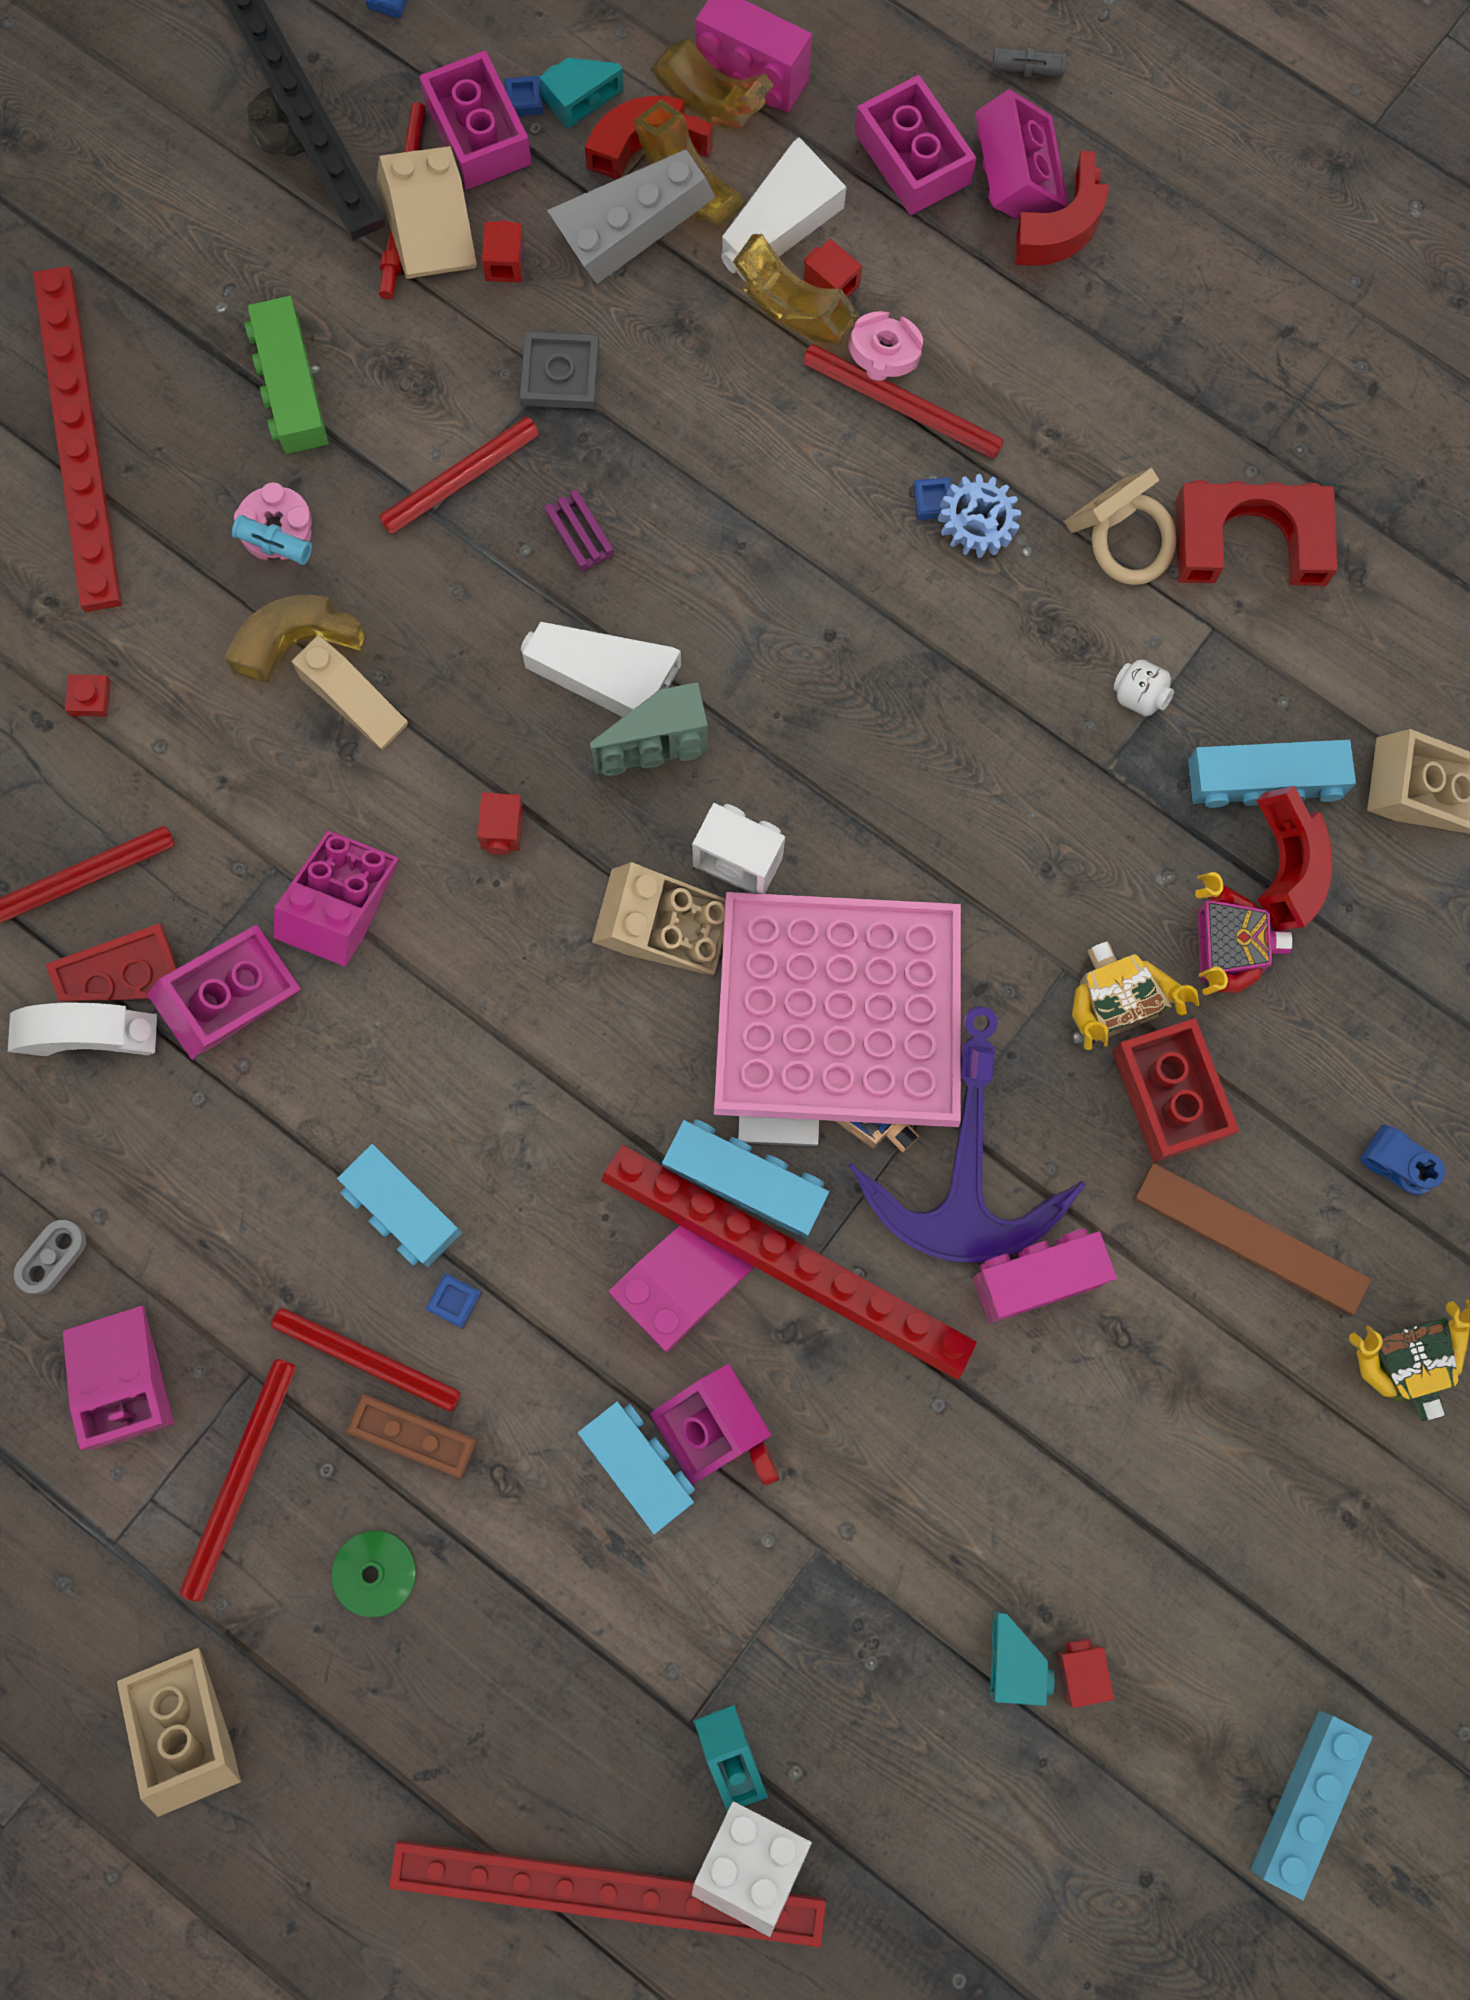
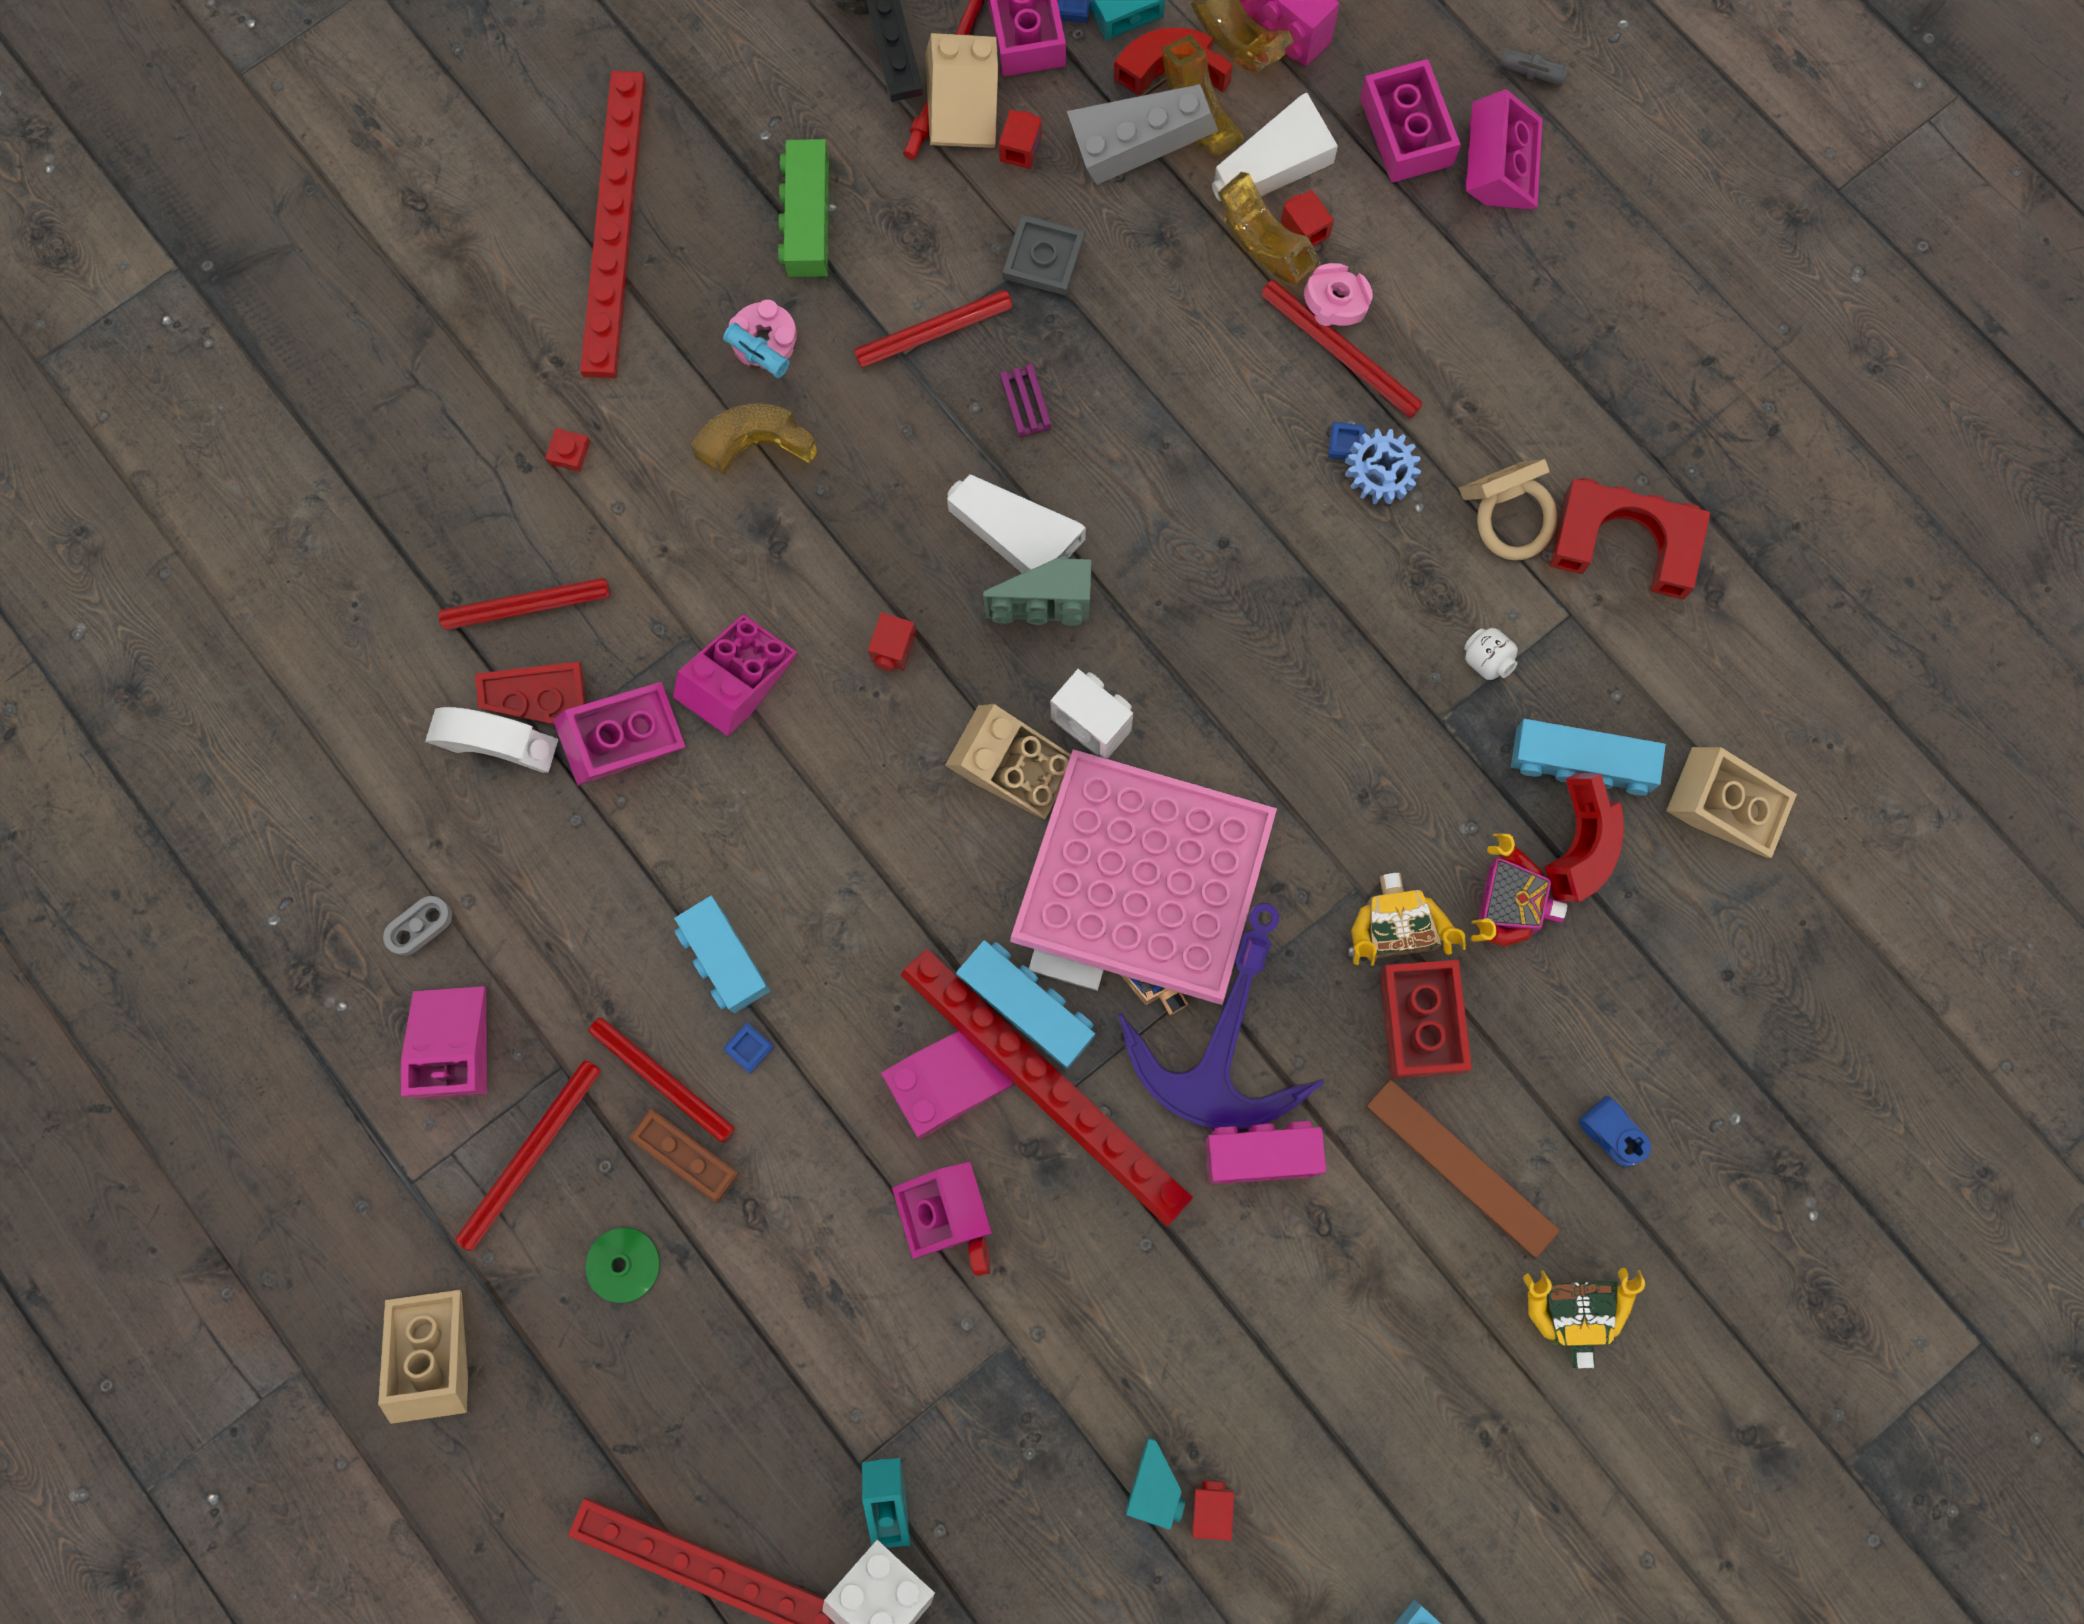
camera: 20 degrees right, 0 degrees up
(348, 692) = (790, 498): tan slope -> none
(638, 1466) = (869, 1230): medium azure brick -> none
(1061, 234) = (1522, 229): red arch -> none

